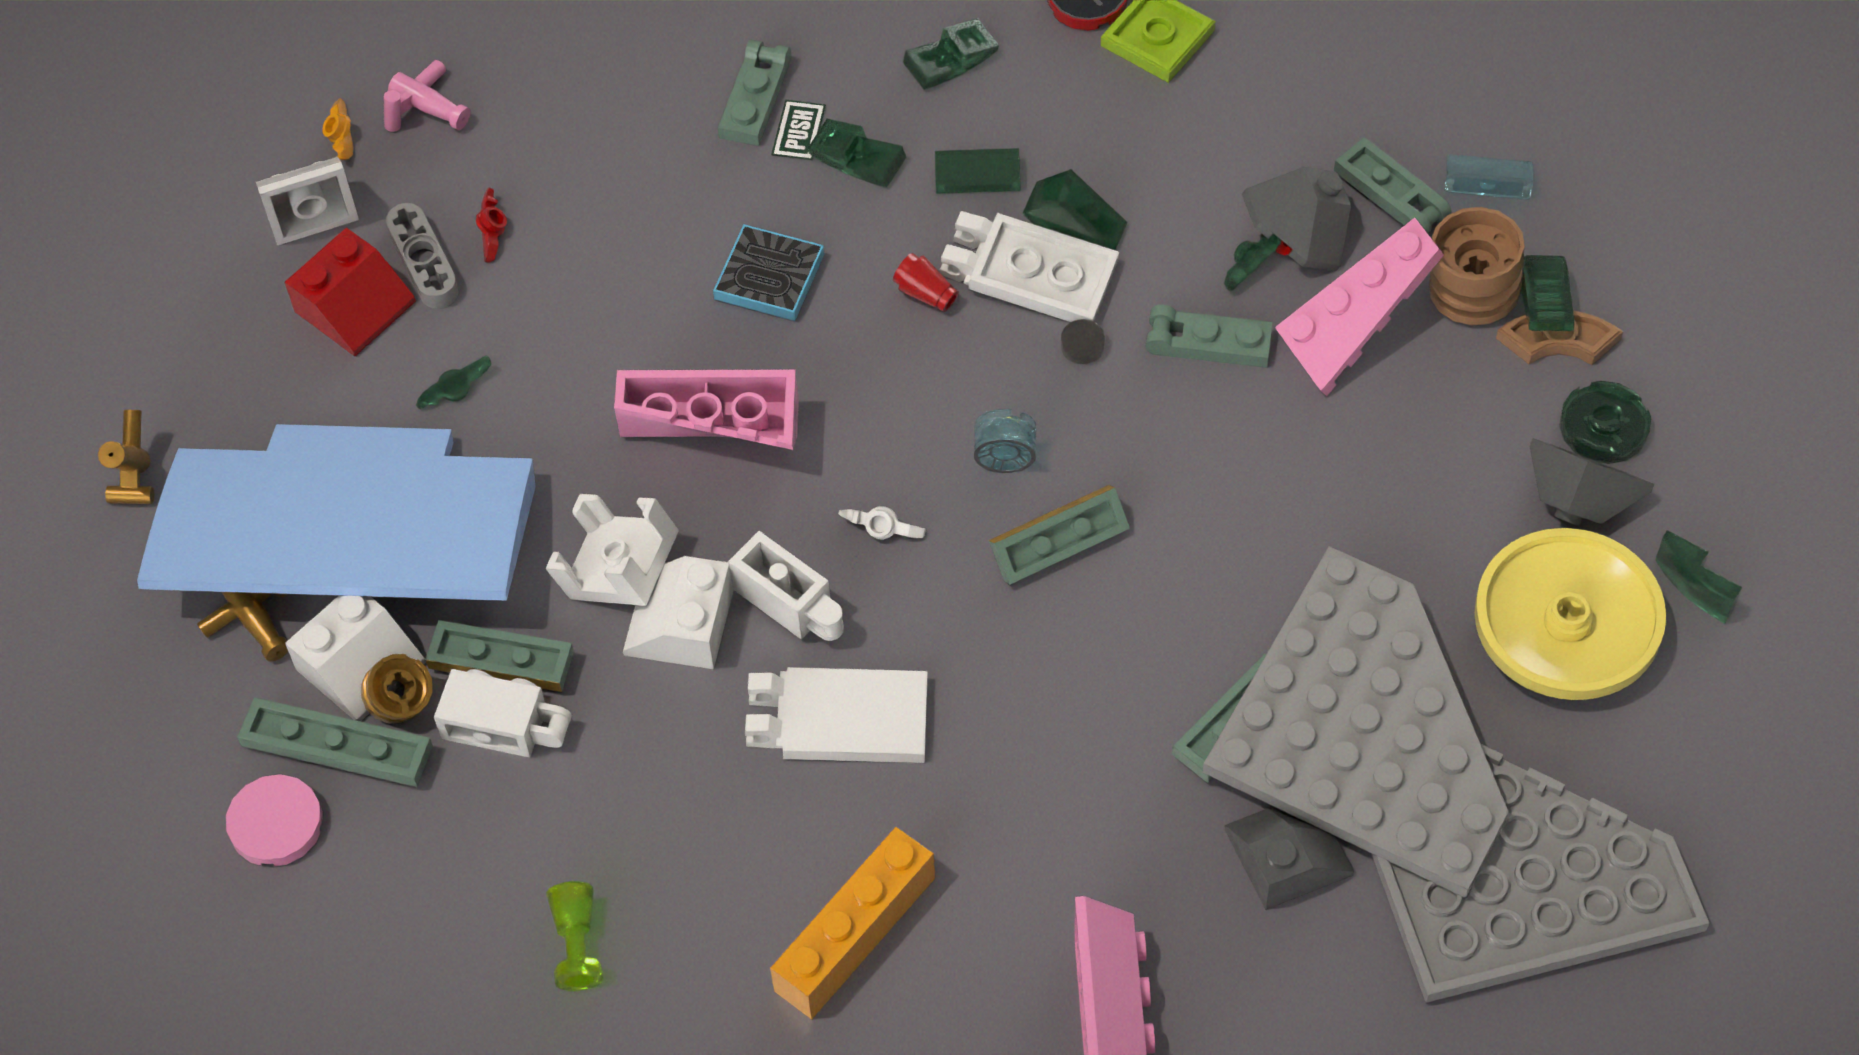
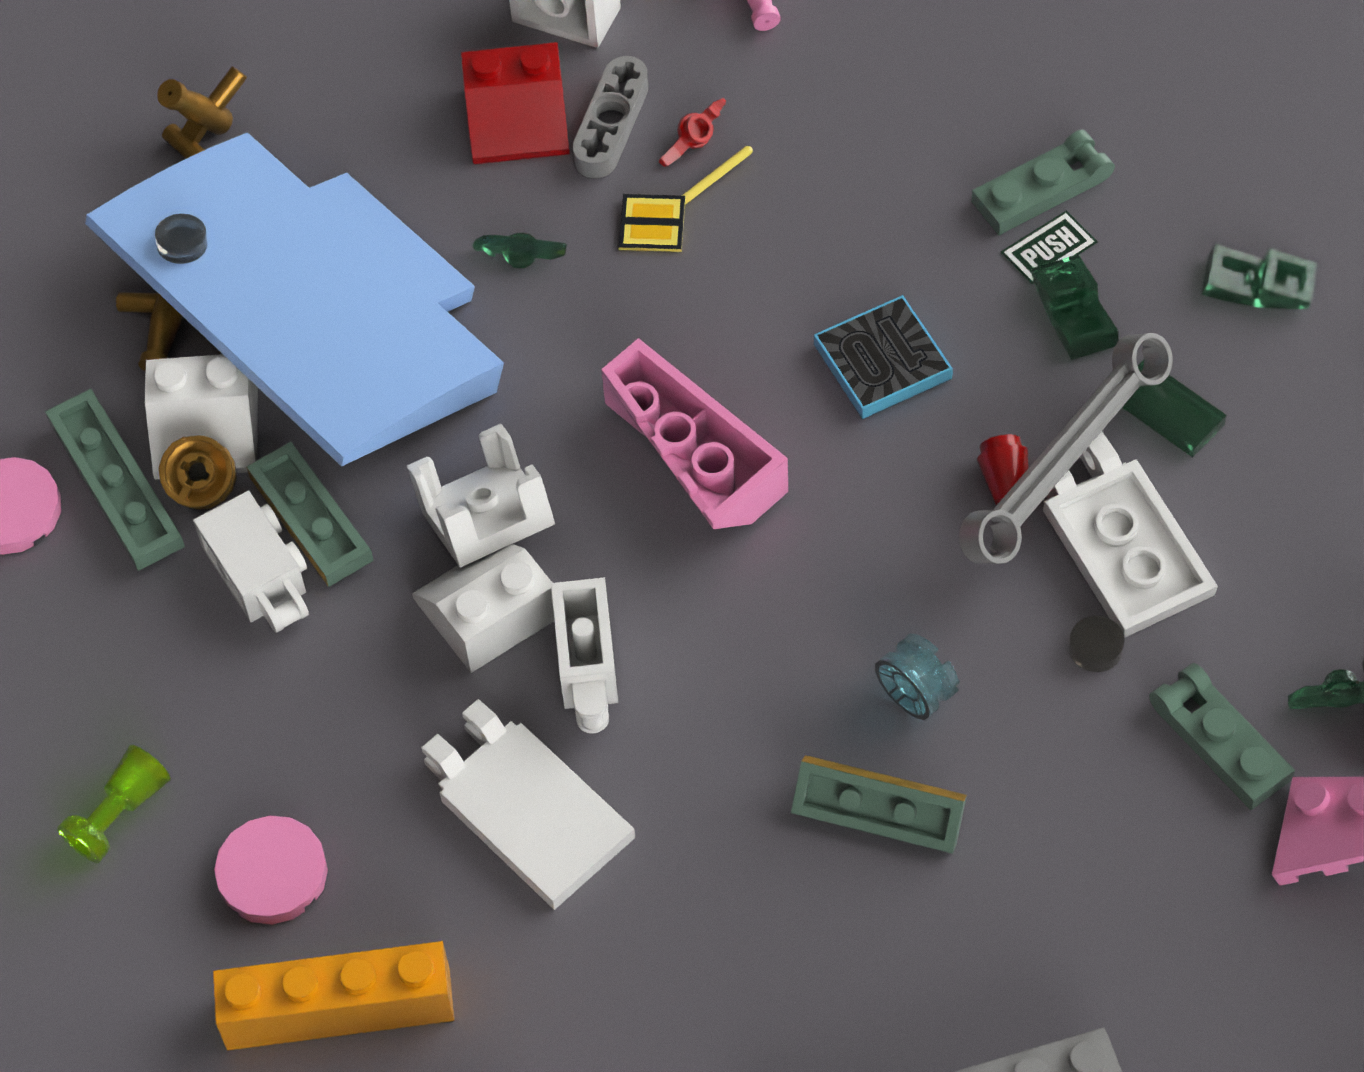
camera: 45 degrees right, 0 degrees up
(228, 542) = (181, 238): none -> clear smoke tile
(525, 299) = (658, 220): none -> piece
(721, 889) = (271, 869): none -> bright pink tile
(882, 523) = (739, 663): white piece -> none
(966, 318) = (1065, 449): none -> light grey piece
(1074, 209) = (1212, 517): clear green slope -> none

